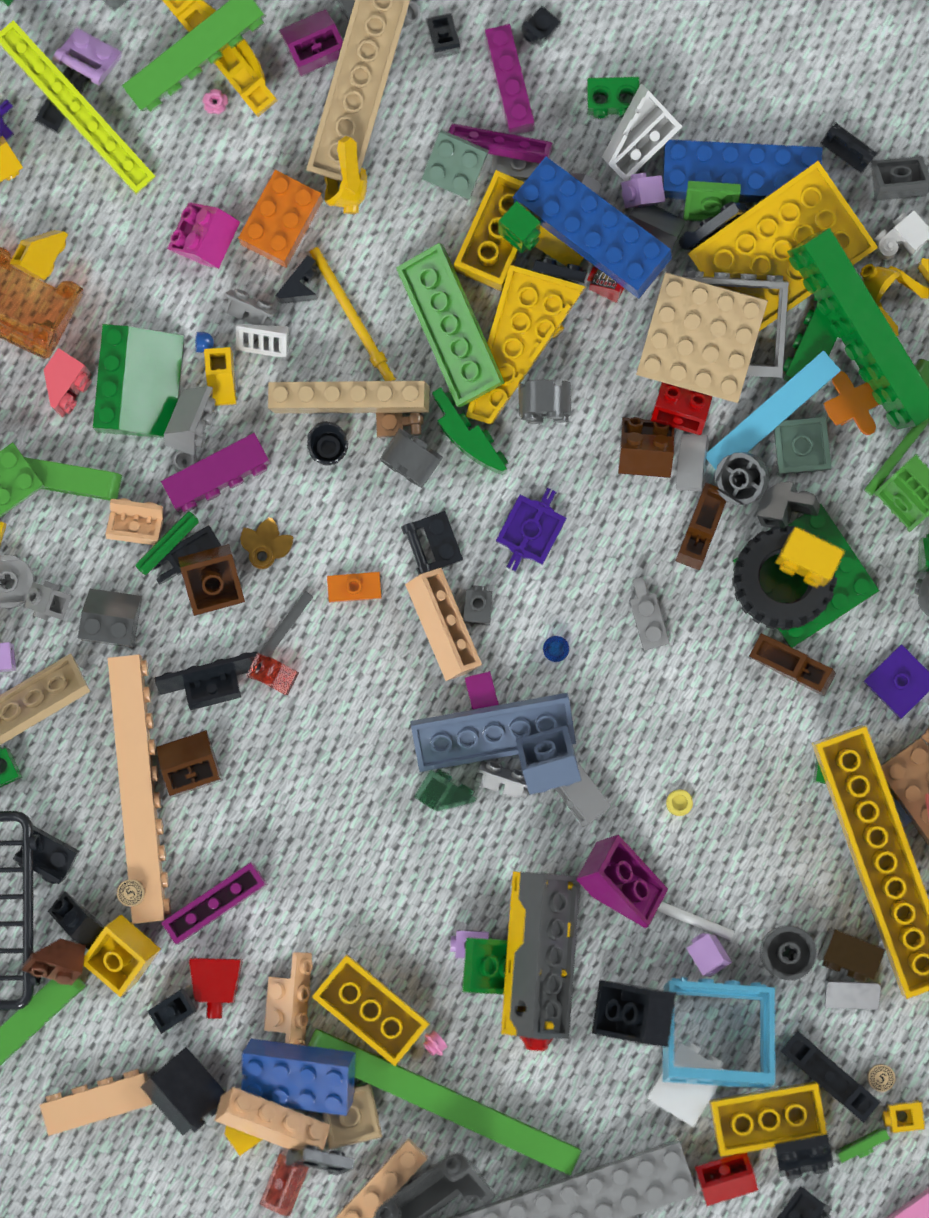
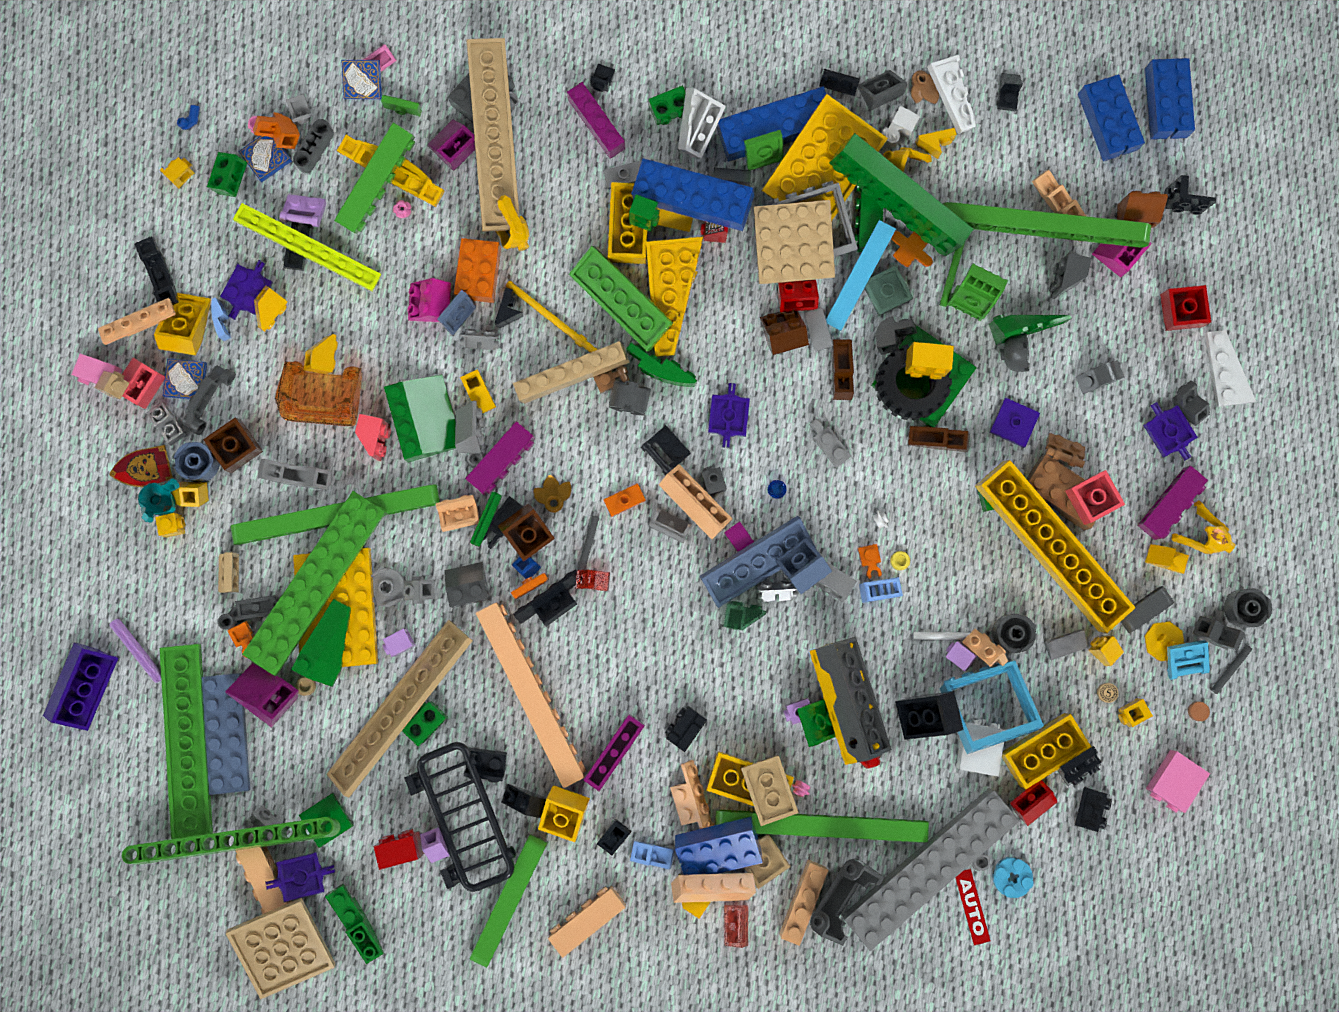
camera: 30 degrees left, 0 degrees up
(57, 961) = (522, 835): copper slope -> none
(131, 893) = (554, 768): tan tile -> none
(184, 1092) = (644, 890): black brick -> none
(188, 764) = (559, 663): reddish brown slope -> none
(189, 649) = (529, 584): none -> orange plate
(195, 626) = (526, 568): none -> blue slope
(203, 341) = (456, 373): blue hinge -> none
(213, 1053) = (652, 855): none -> light blue slope
(215, 982) = (635, 806): red torso -> none
(232, 264) = (457, 312): none -> sand blue tile
(263, 330) = (494, 350): white slope -> none
(312, 1157) = (750, 900): plate -> none
(317, 909) = (685, 728): none -> black brick
(327, 443) = (568, 410): black hair -> none
(391, 1027) = (769, 790): none -> tan plate
(400, 642) = (670, 525): none -> light grey hinge
(443, 35) = (540, 107): black slope -> none
(455, 164) = (581, 190): sand green plate -> none
(504, 144) = (605, 165): magenta tile -> none
(544, 401) = (704, 325): dark grey brick -> none
(571, 273) = (688, 232): black plate -> none
(617, 824) = (865, 592): none -> light blue slope
(622, 881) = (884, 628): magenta slope -> none
(641, 782) = (869, 557): none -> orange plate
(642, 191) = (715, 159): lavender brick -> none
(675, 739) = (881, 519): none -> white plate
(712, 225) = (770, 165): black hinge -> none
(739, 956) = (983, 647): none -> light nougat bracket
(742, 478) = (857, 326): dark grey cylinder -> none
(830, 1076) = (1075, 705): black slope -> none
(850, 953) = (1057, 617): dark brown brick -> none
(862, 1146) = (1114, 743): bright green plate -> none
(899, 1021) = (1106, 649): none -> yellow slope

